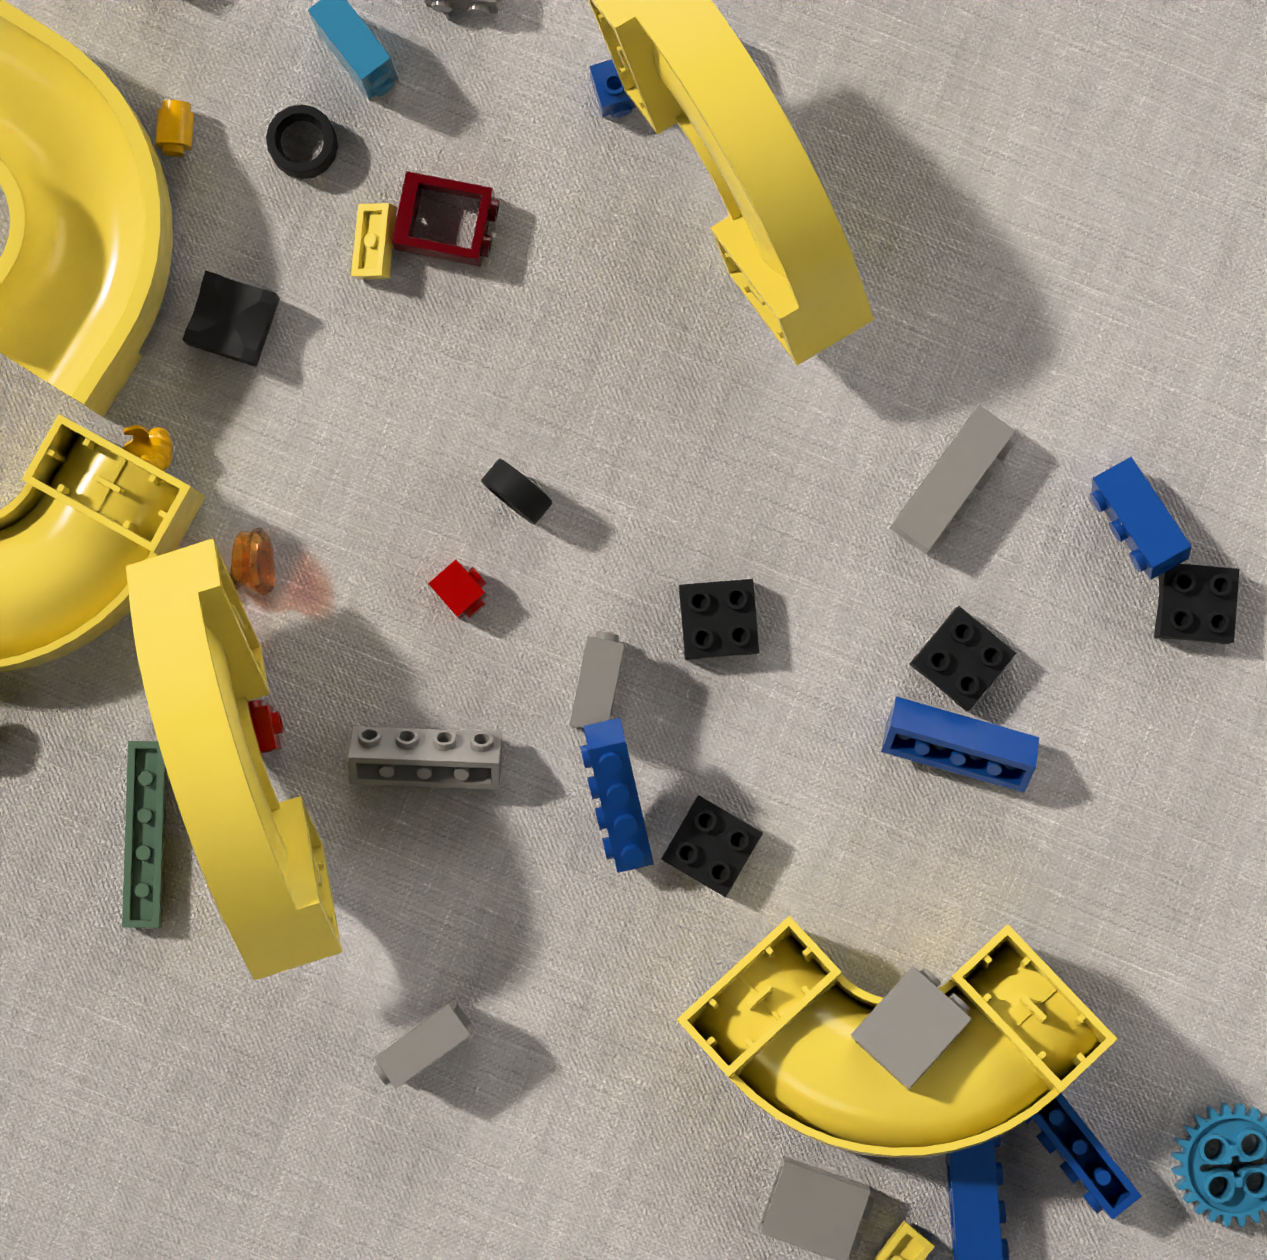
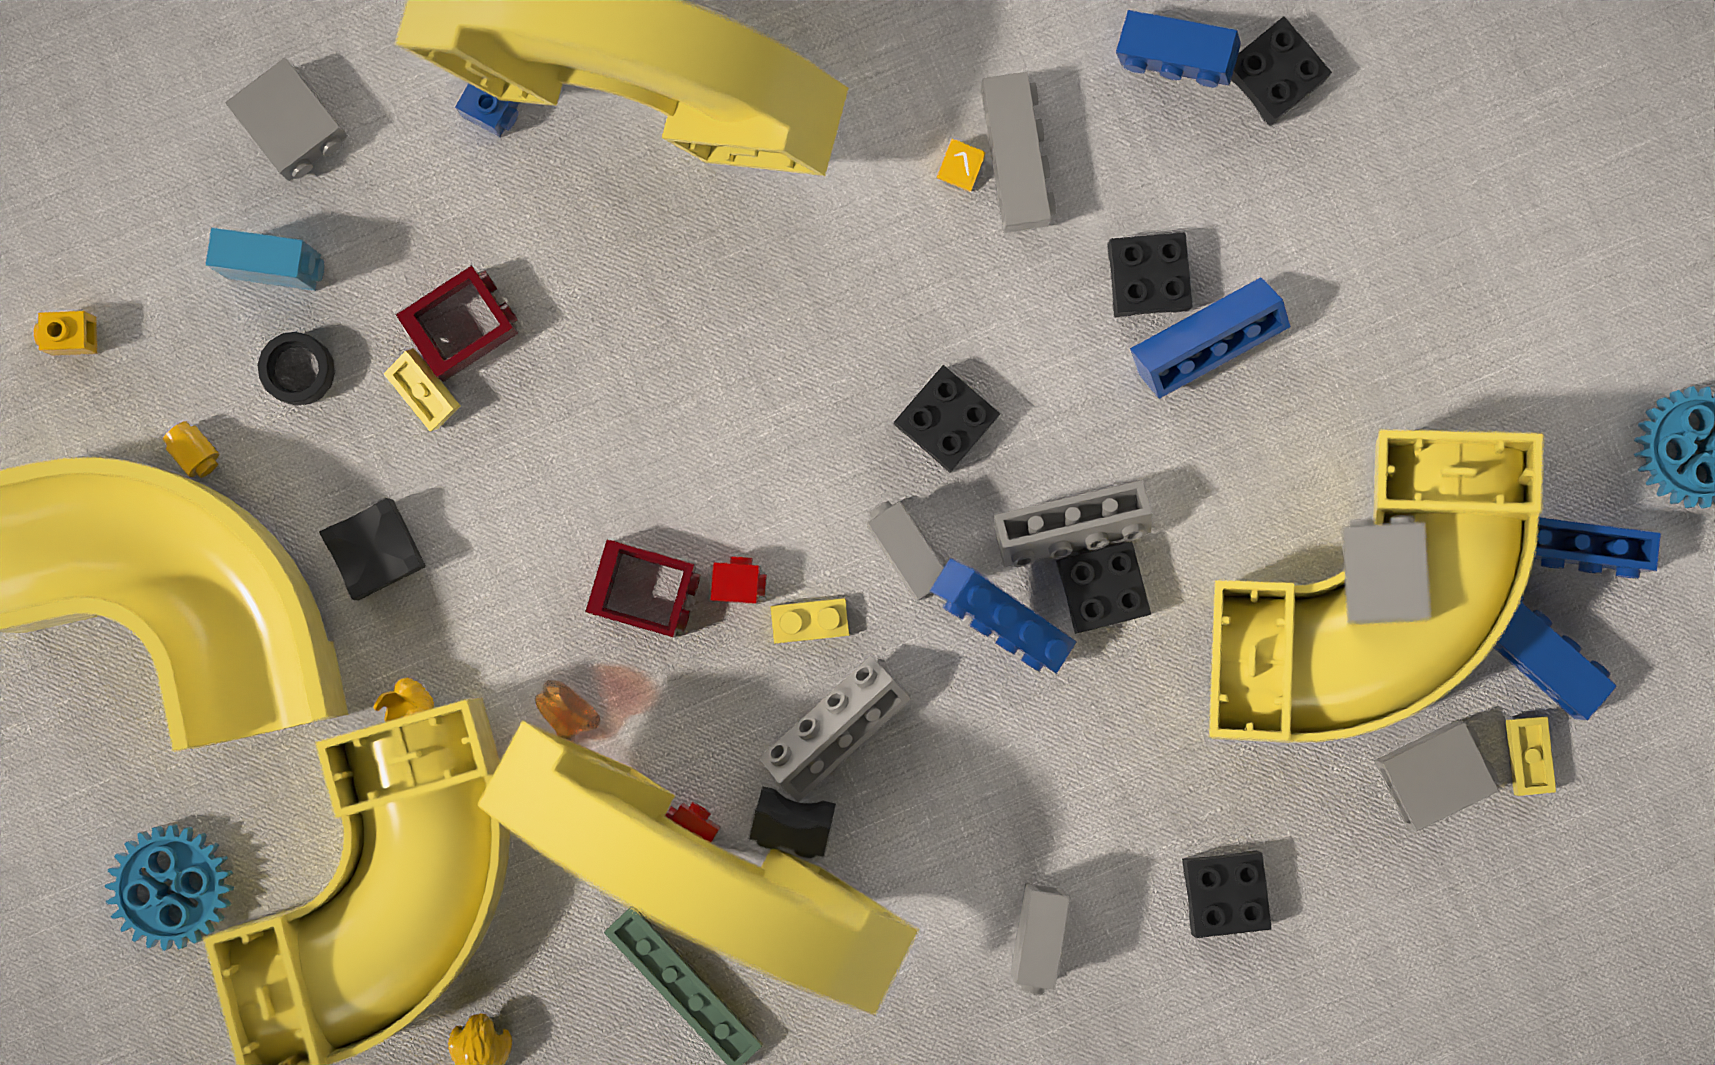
camera: 50 degrees left, 0 degrees up
(329, 794) = (791, 824): none -> black brick
(371, 497) = (605, 580): none -> dark red window
(483, 666) = (809, 620): none -> light yellow plate
(516, 491) = (709, 469): black tyre -> none
(585, 1145) = (1227, 894): none -> black brick
(733, 780) = (1073, 524): none -> light grey brick
(906, 451) = (961, 165): none -> yellow slope

